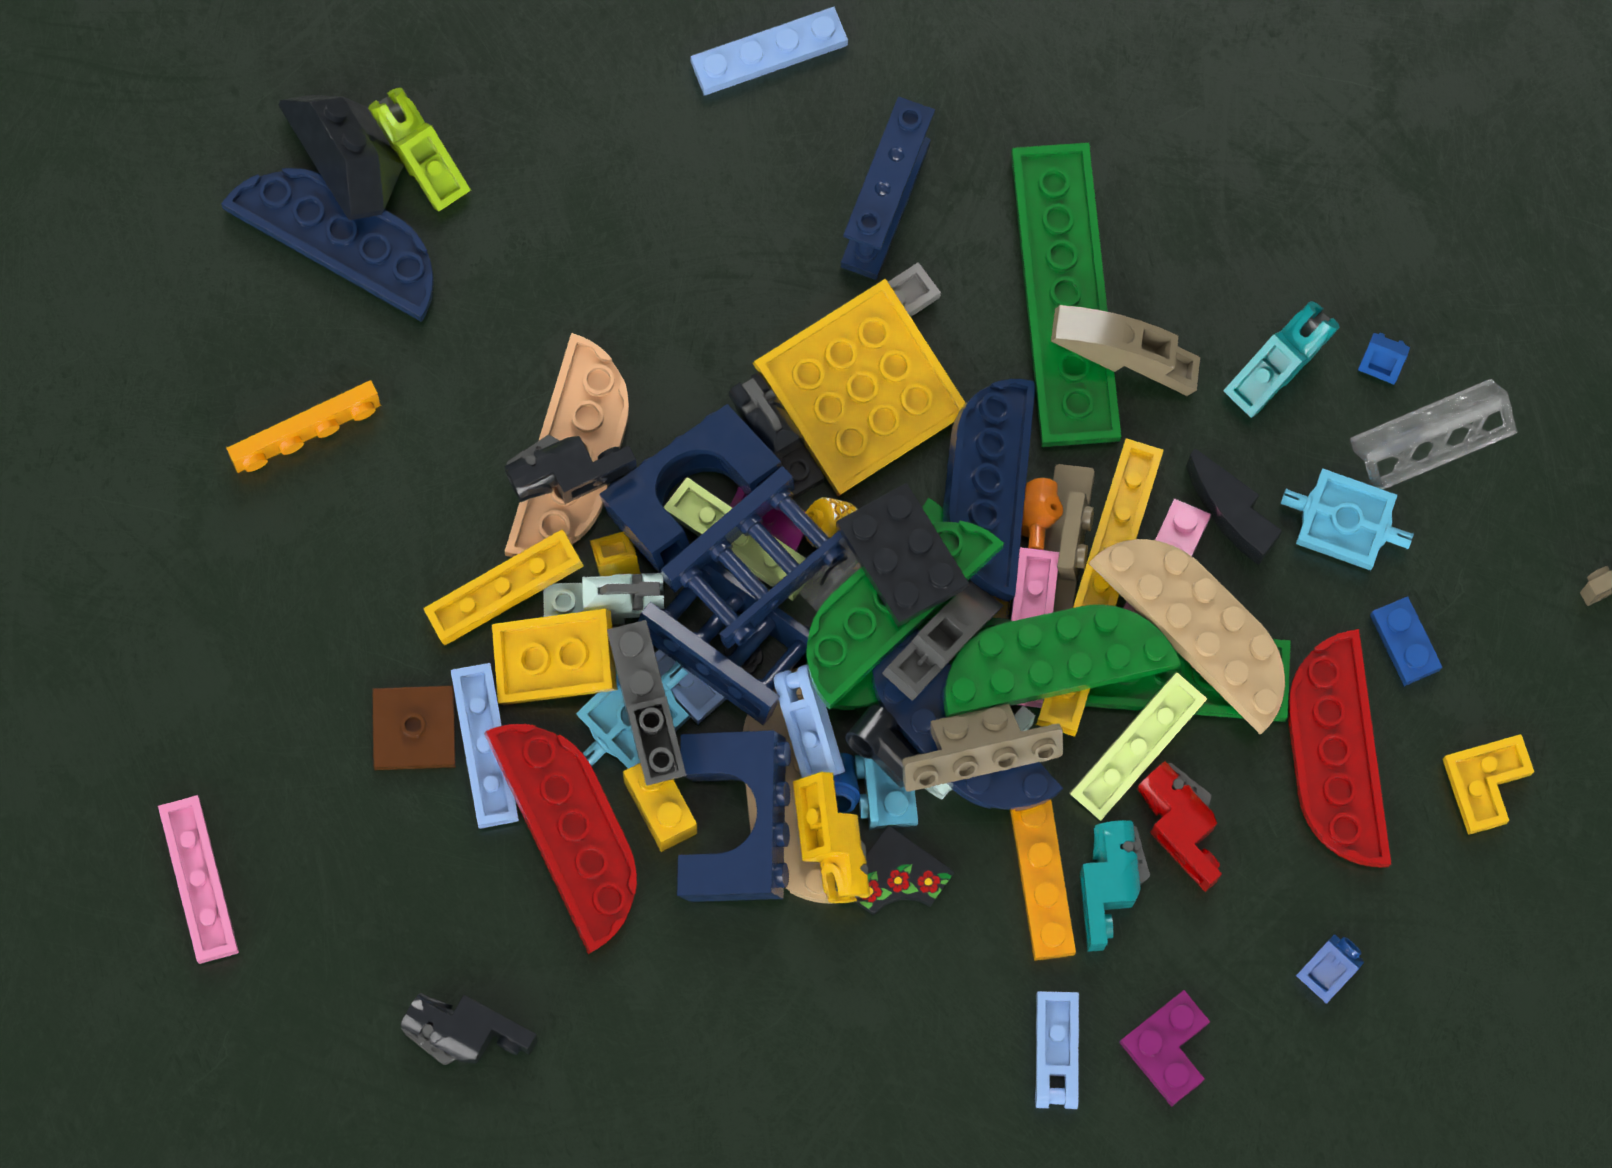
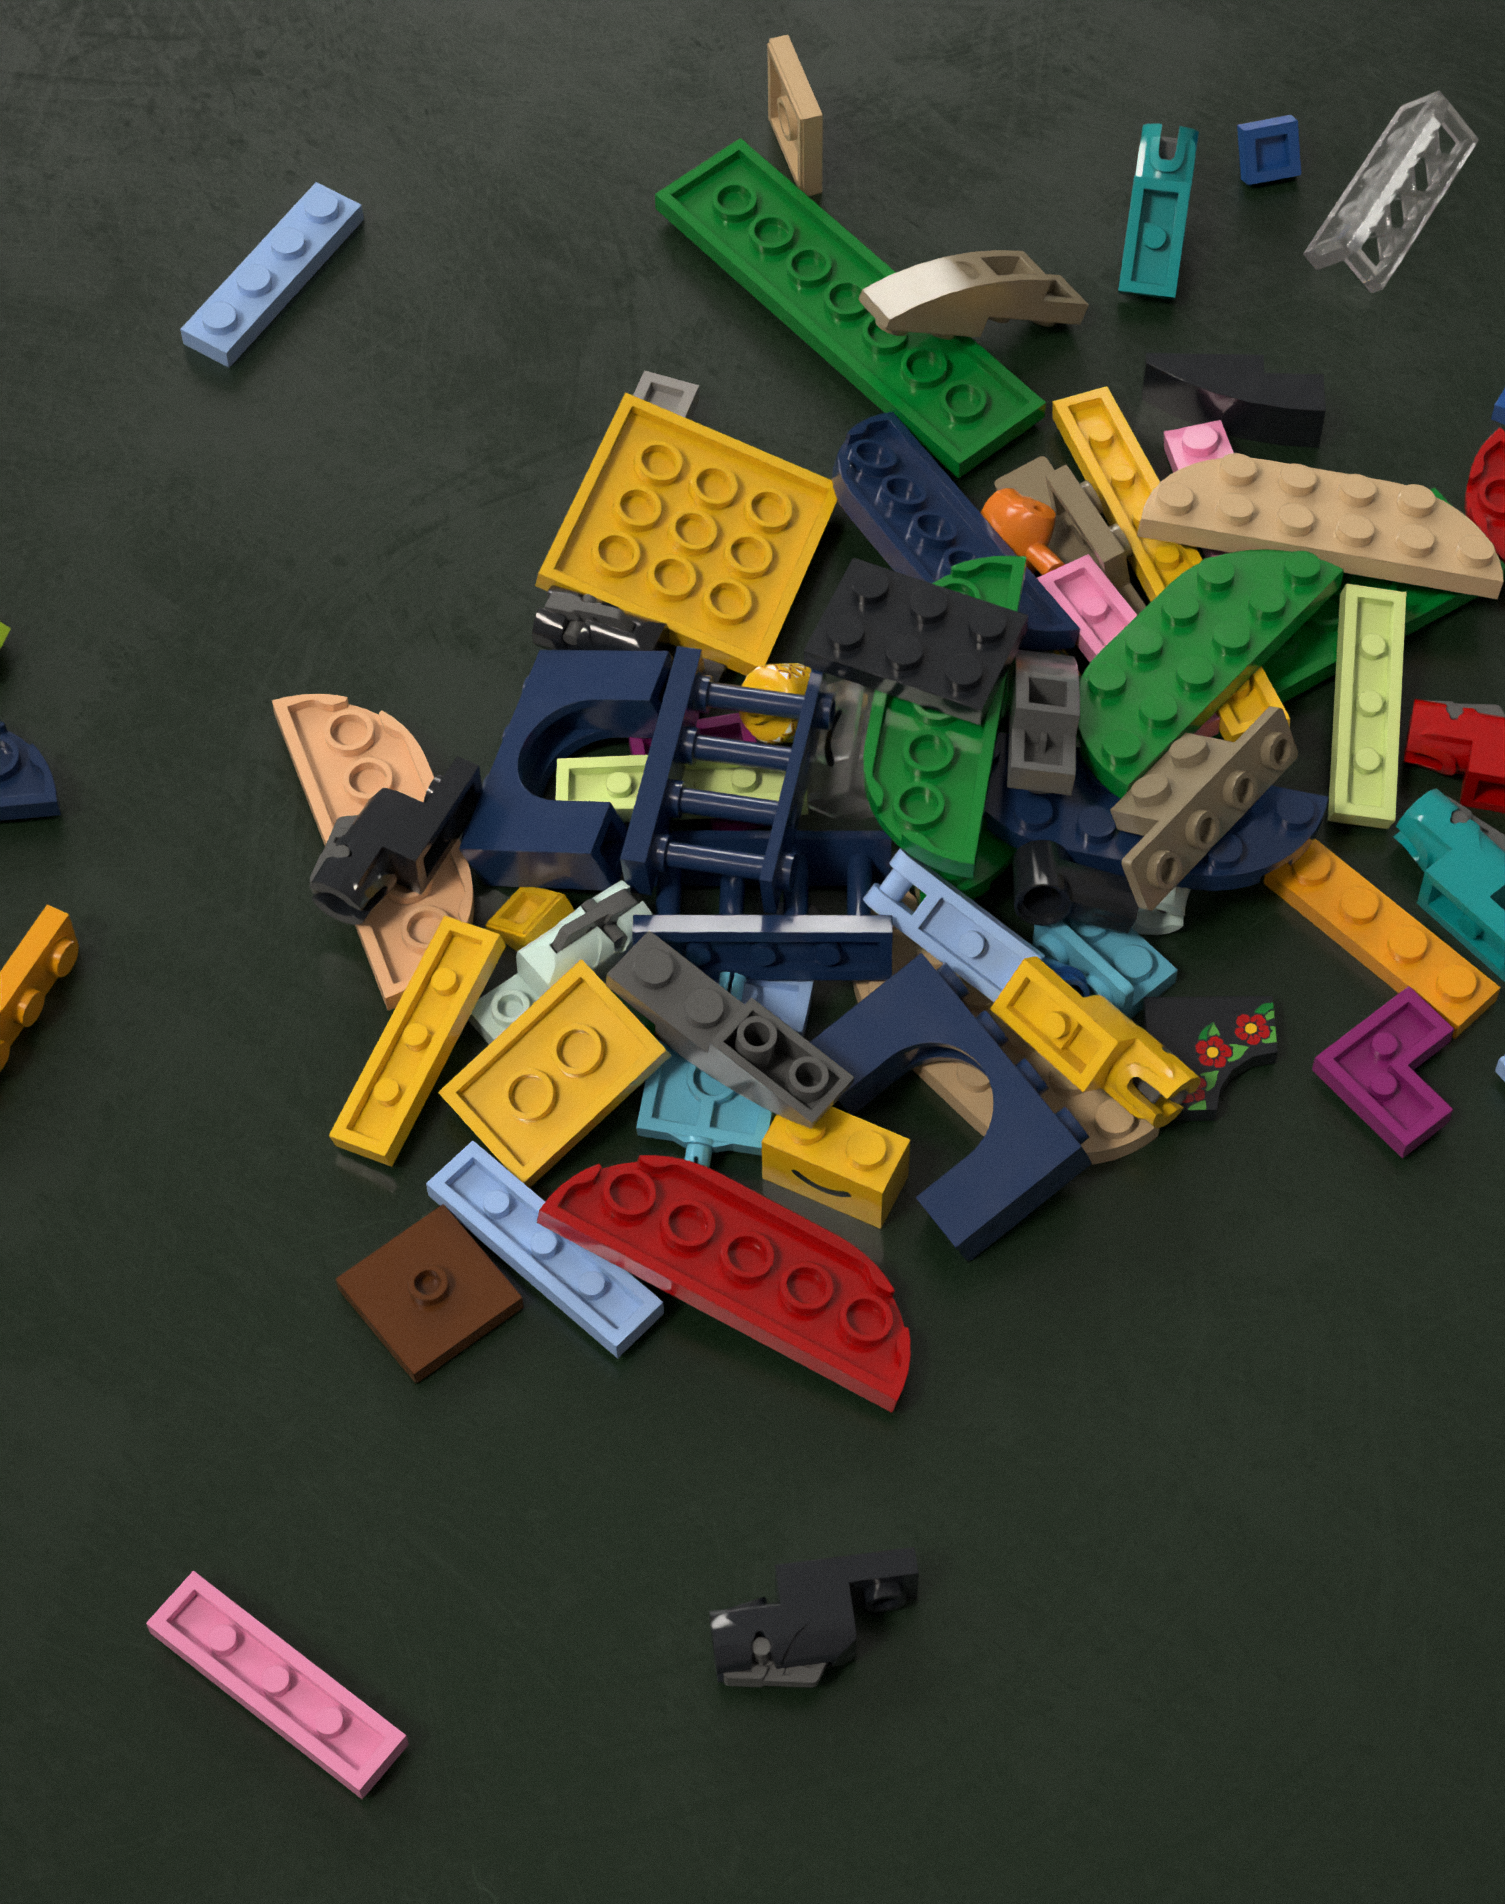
camera: 30 degrees left, 15 degrees down
(887, 188) = (546, 305): dark blue fence -> none
(974, 946) = (1375, 1072): none -> magenta plate
(1124, 153) = (795, 115): none -> tan tile
(1346, 519) = (1378, 331): medium azure plate -> none

